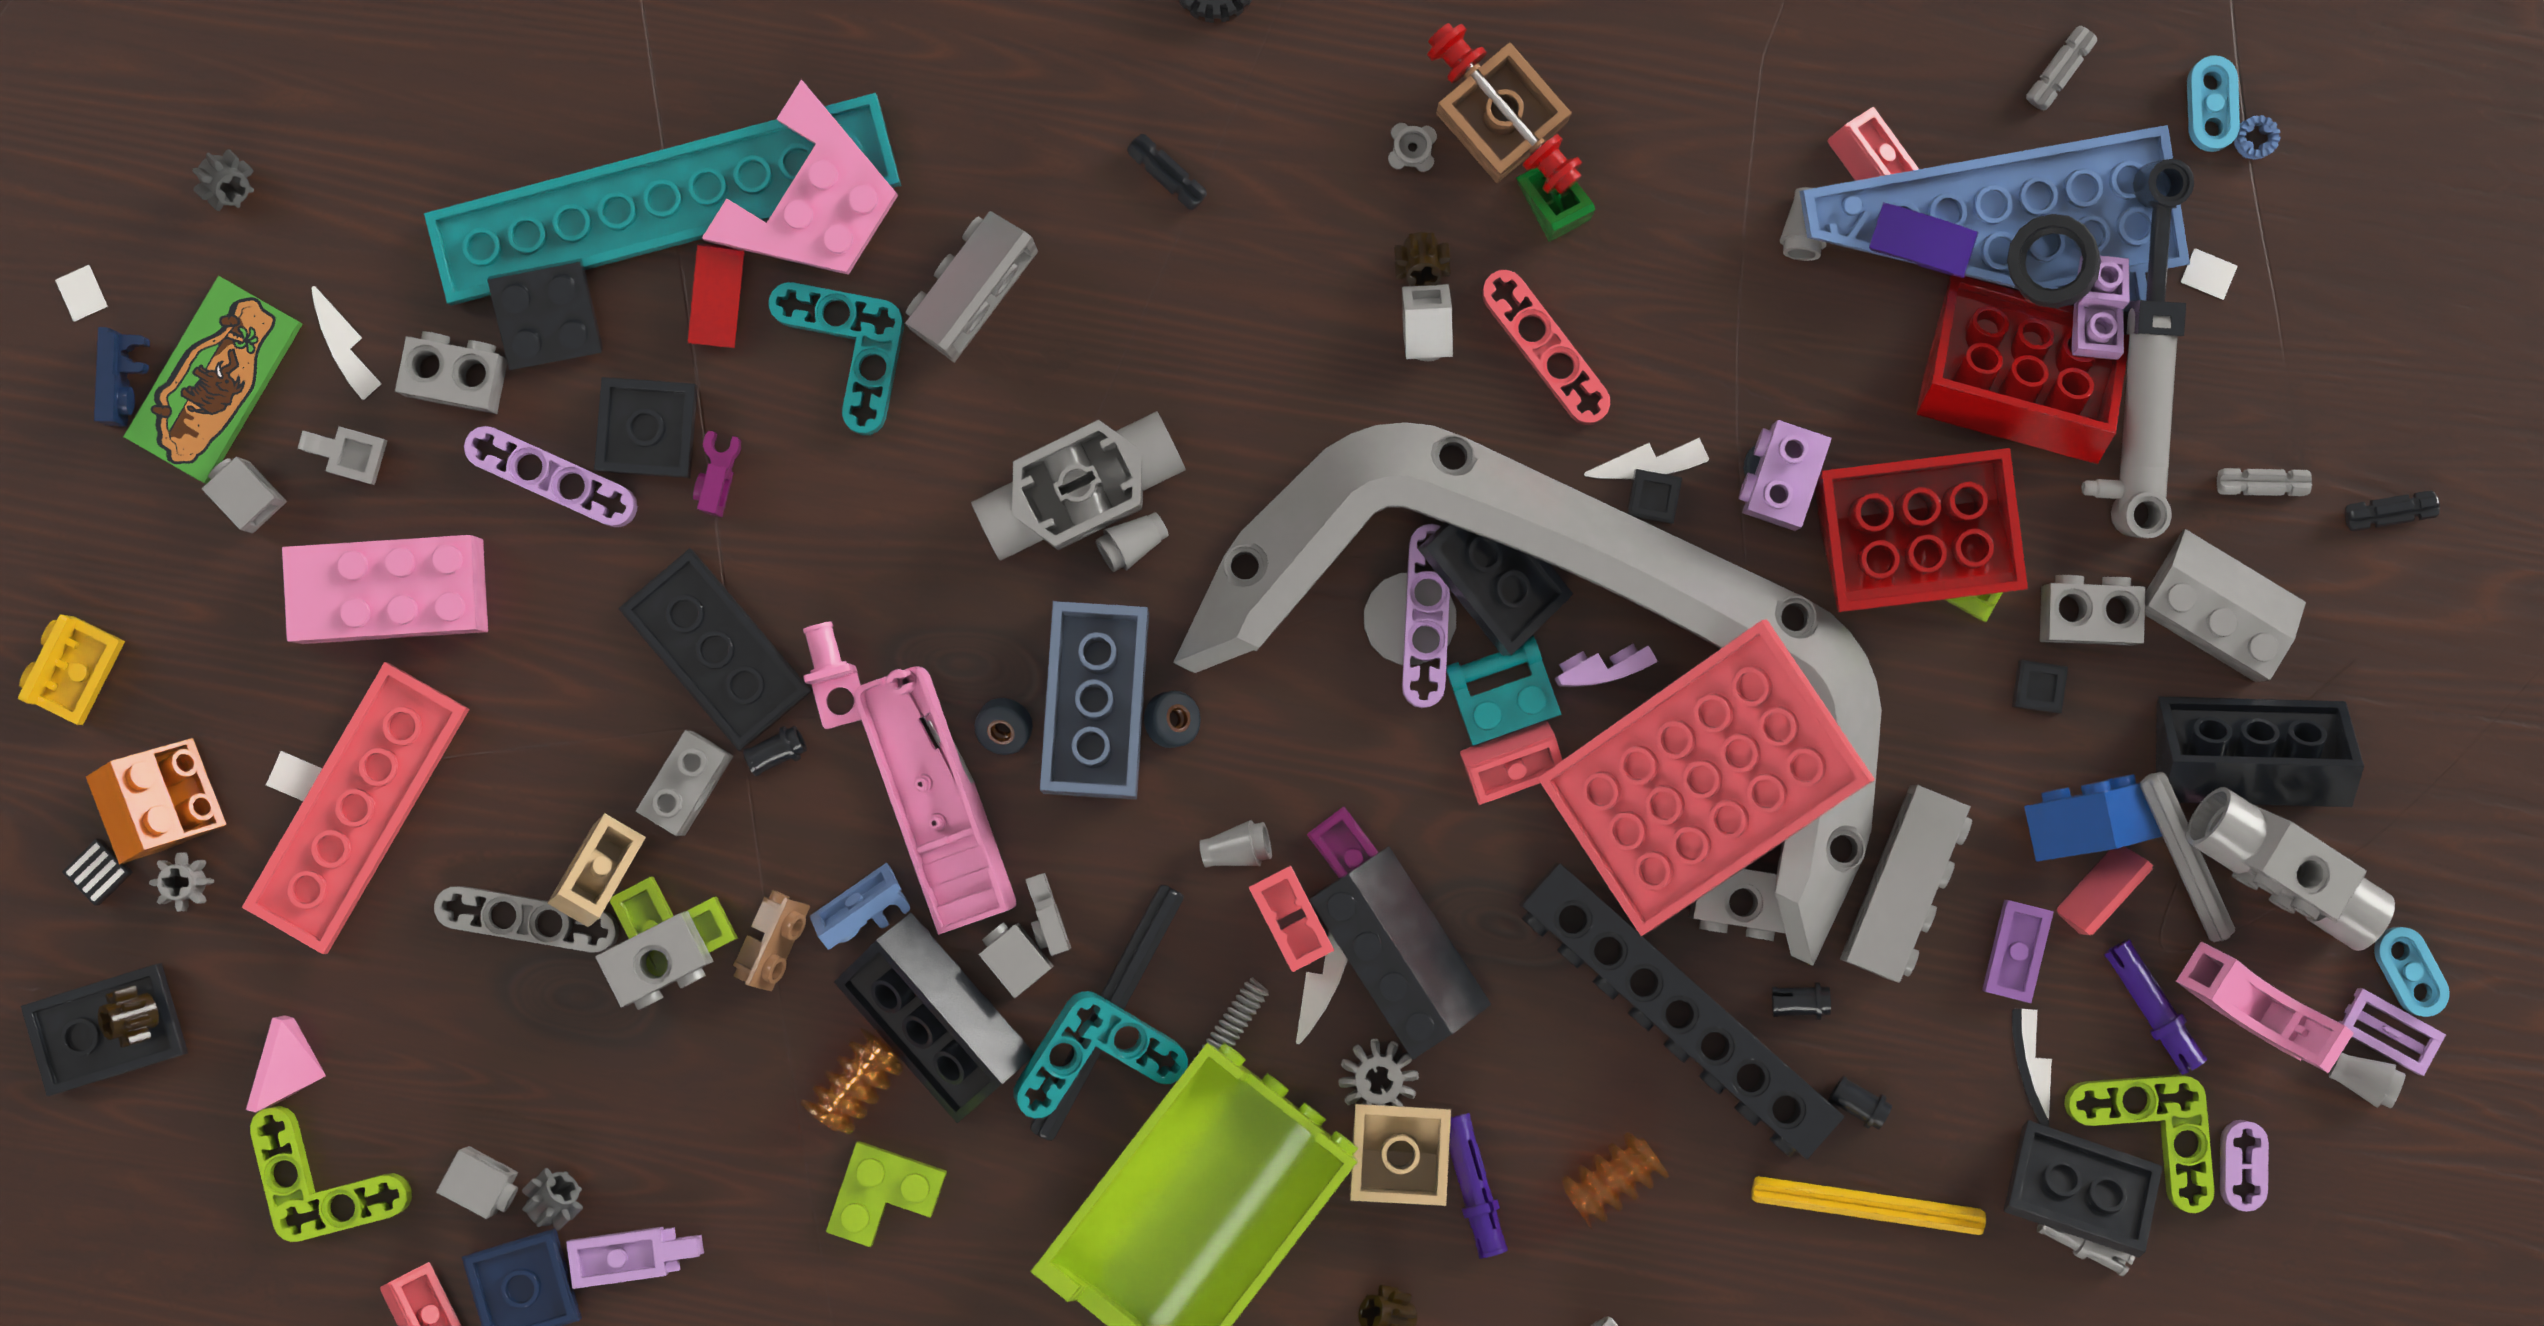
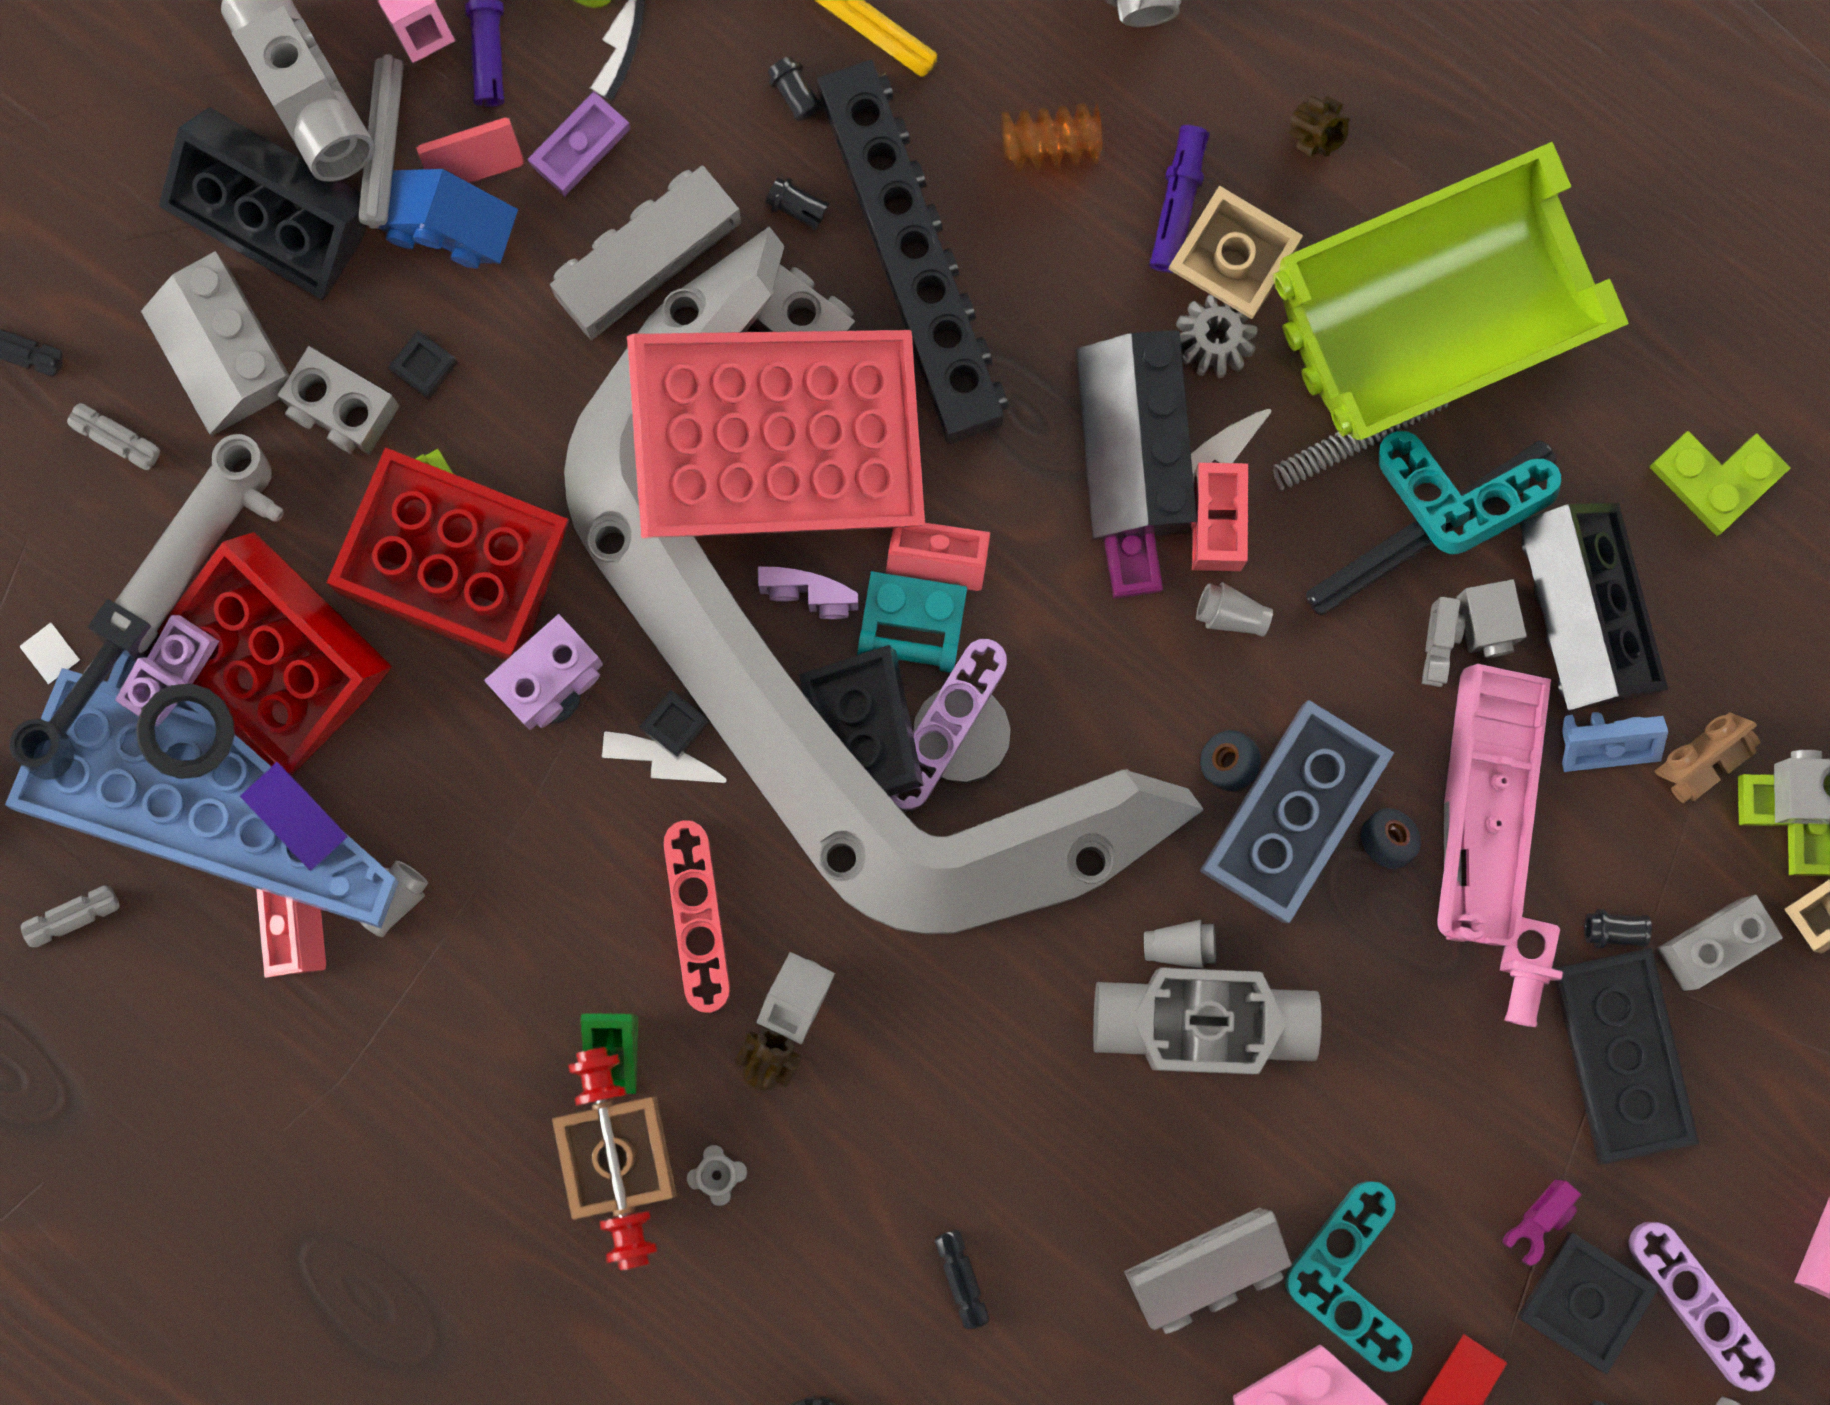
camera: 160 degrees left, 5 degrees down
(854, 1084) = (1697, 581): clear orange piece -> none

